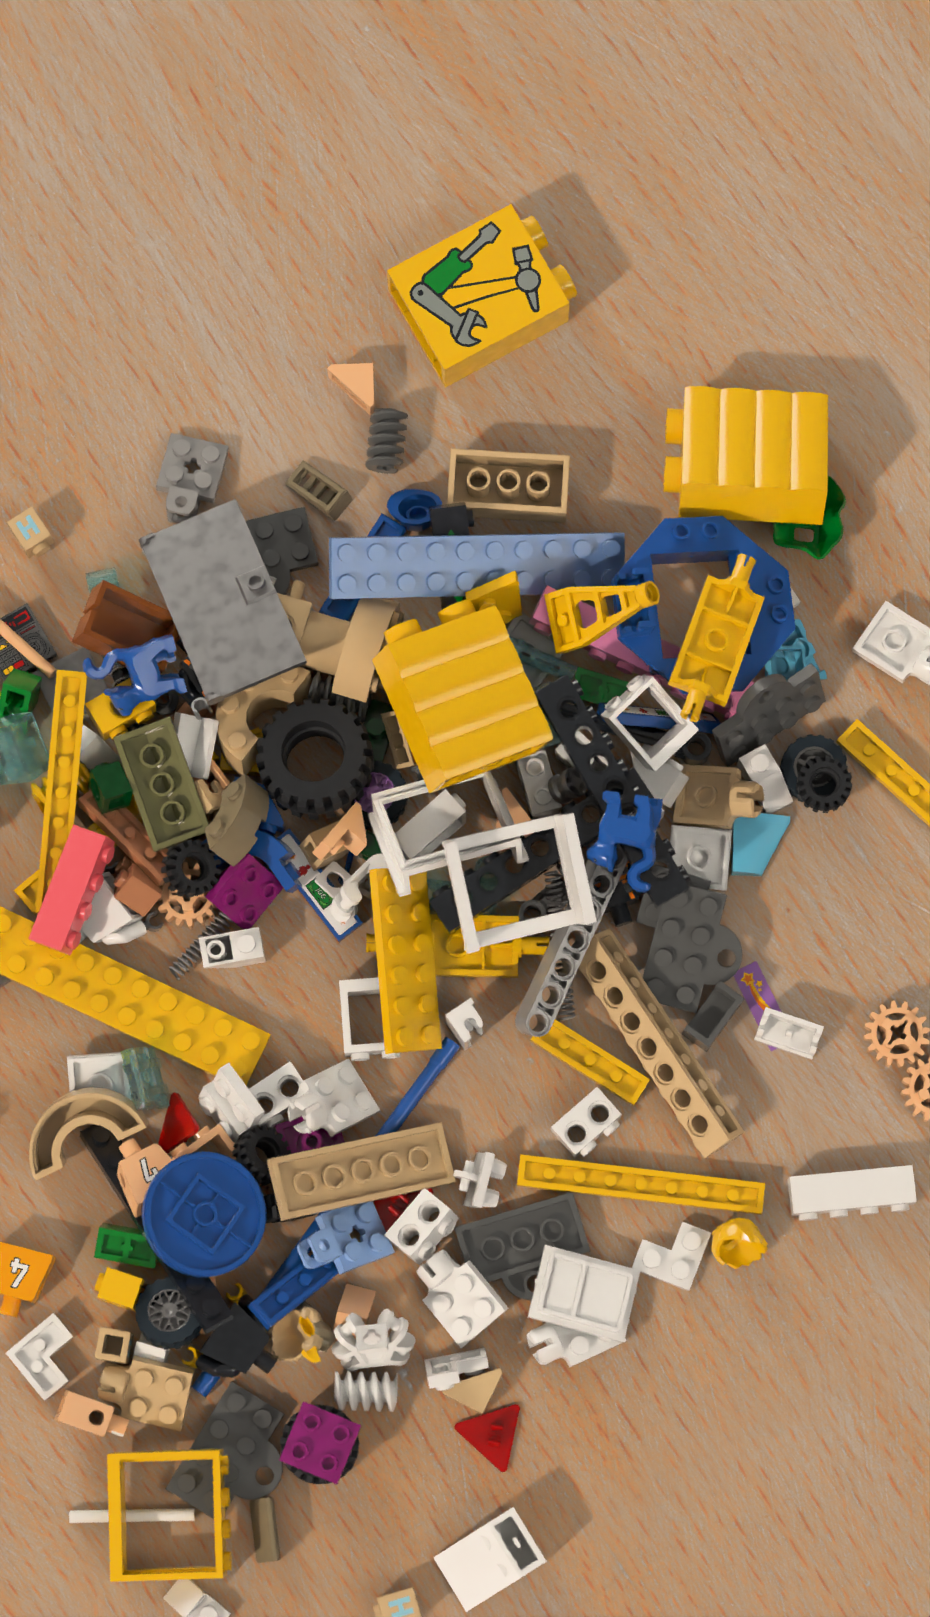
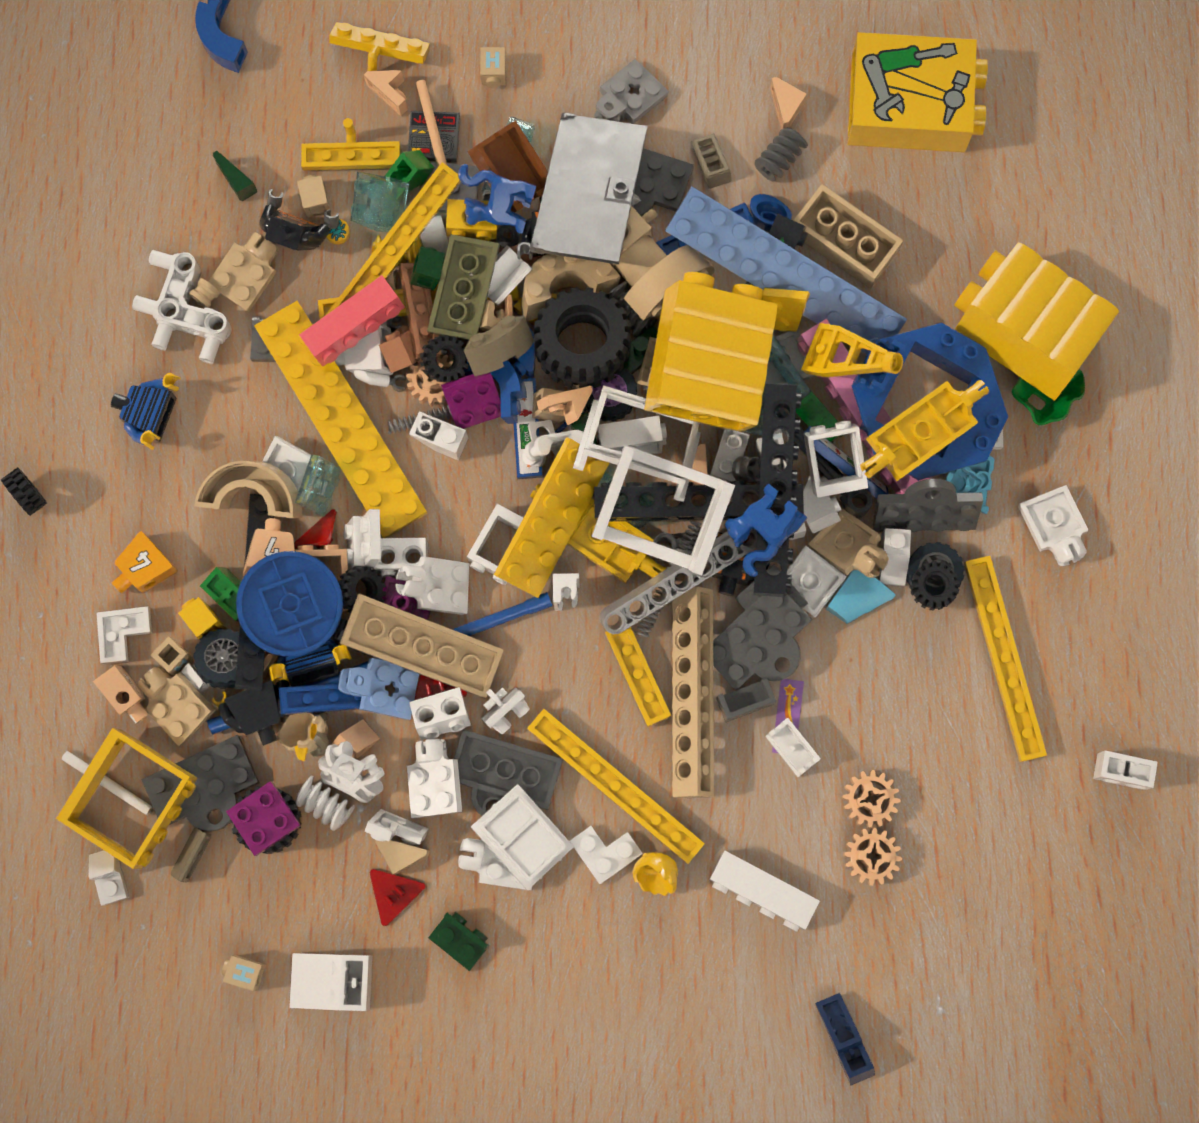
camera: 35 degrees right, 0 degrees up
(264, 1263) = (311, 666): none -> torso
(581, 1117) = (604, 709): white brick -> none
(589, 1436) = (459, 940): none -> dark green bracket

